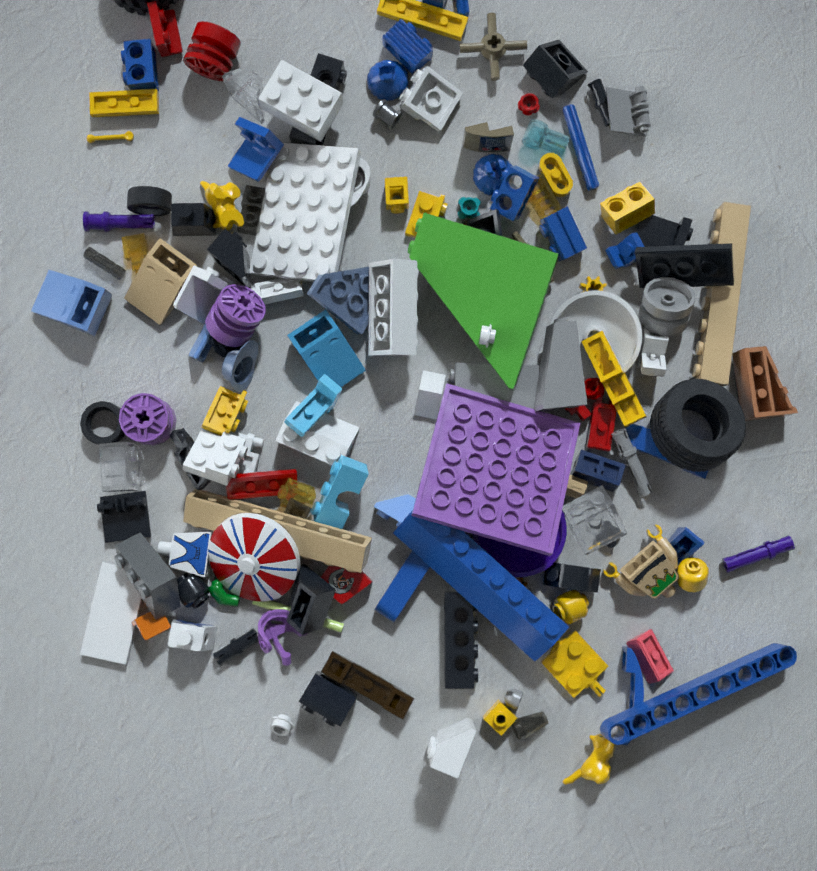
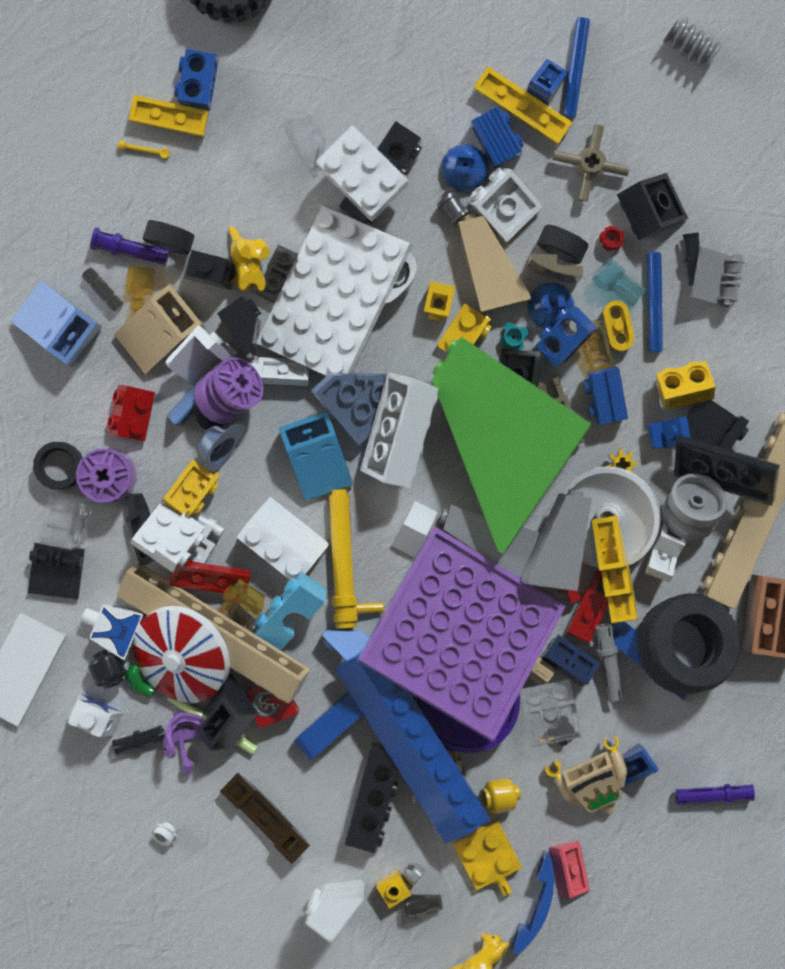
camera: 10 degrees right, 5 degrees up
(149, 575) = (66, 641): dark grey wedge -> none
(149, 626) = (56, 693): orange panel -> none
(155, 360) = (130, 412): none -> red bracket
(165, 30) = (235, 46): red bracket -> none
(211, 50) = (278, 89): red wheel -> none
(256, 151) = (297, 213): blue bracket -> none
(314, 406) = (286, 512): medium azure bracket -> none
(327, 699) = (219, 822): black slope -> none
(385, 471) = (342, 561): none -> yellow cylinder
(433, 156) = (491, 272): none -> tan slope
(487, 335) = (490, 491): white plate -> none
(492, 112) = (563, 244): none -> black tyre
(572, 577) = (511, 766): black brick -> none
(590, 383) = (586, 568): red plate -> none
(688, 691) = (595, 918): blue beam -> none
(692, 574) = (637, 798): yellow head -> none

